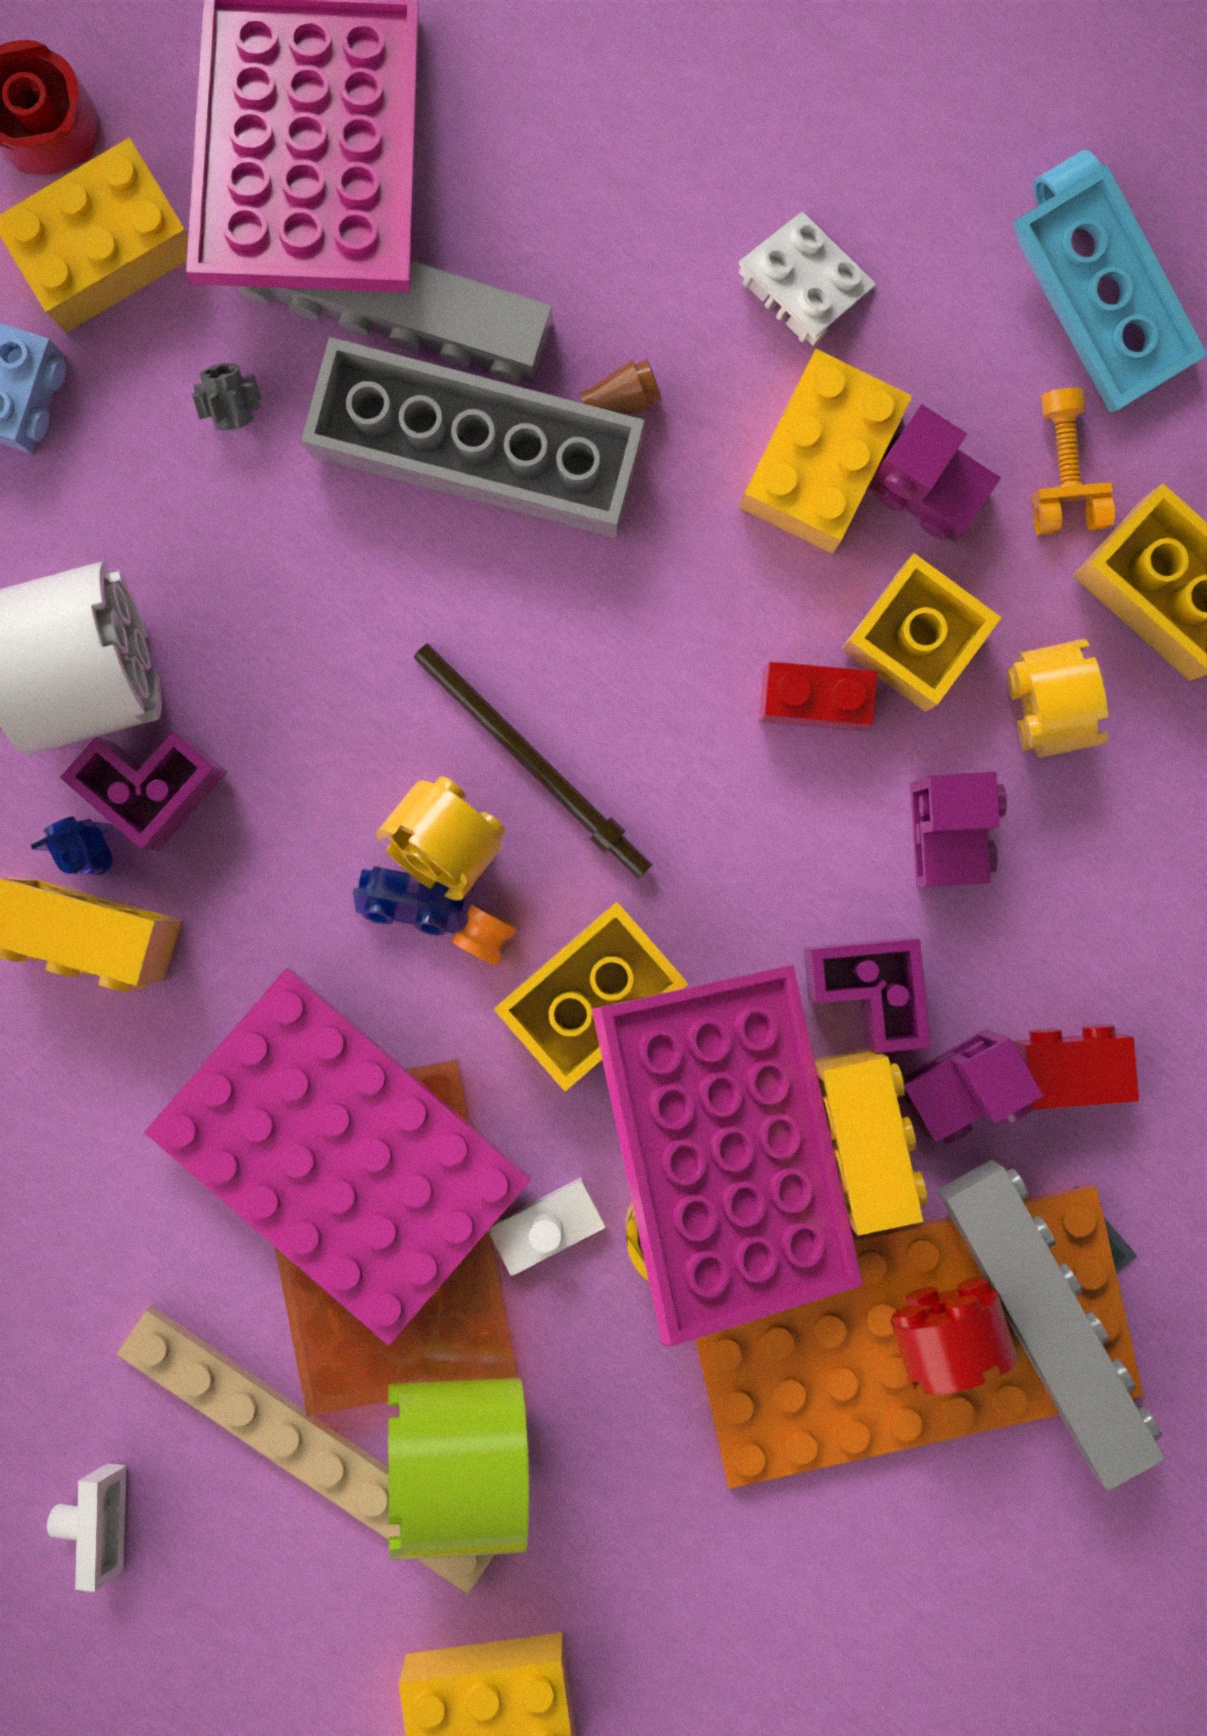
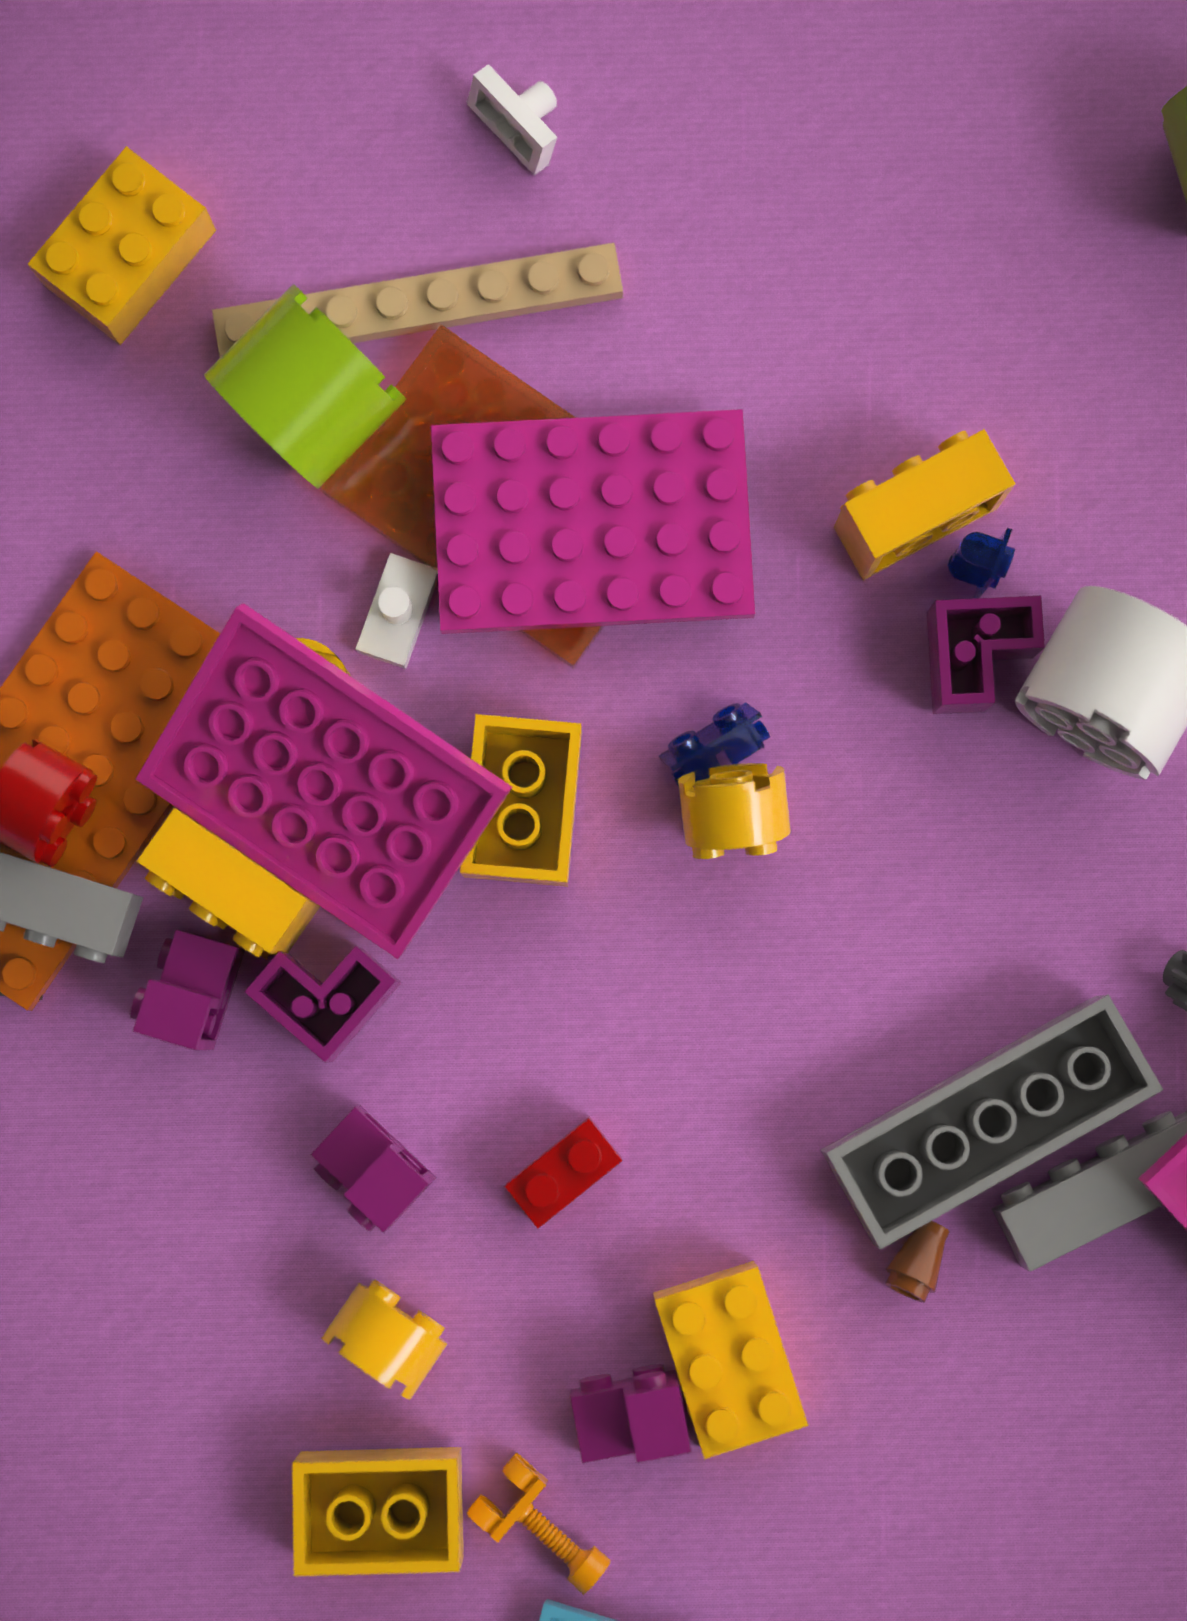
camera: 140 degrees right, 5 degrees down
(484, 935) = (638, 771): orange wheel -> none
(605, 833) = (621, 928): dark brown bar -> none
(805, 276) = (868, 1480): white hinge -> none
(921, 633) = (532, 1290): yellow brick -> none
(1081, 1068) = (121, 1082): red brick -> none

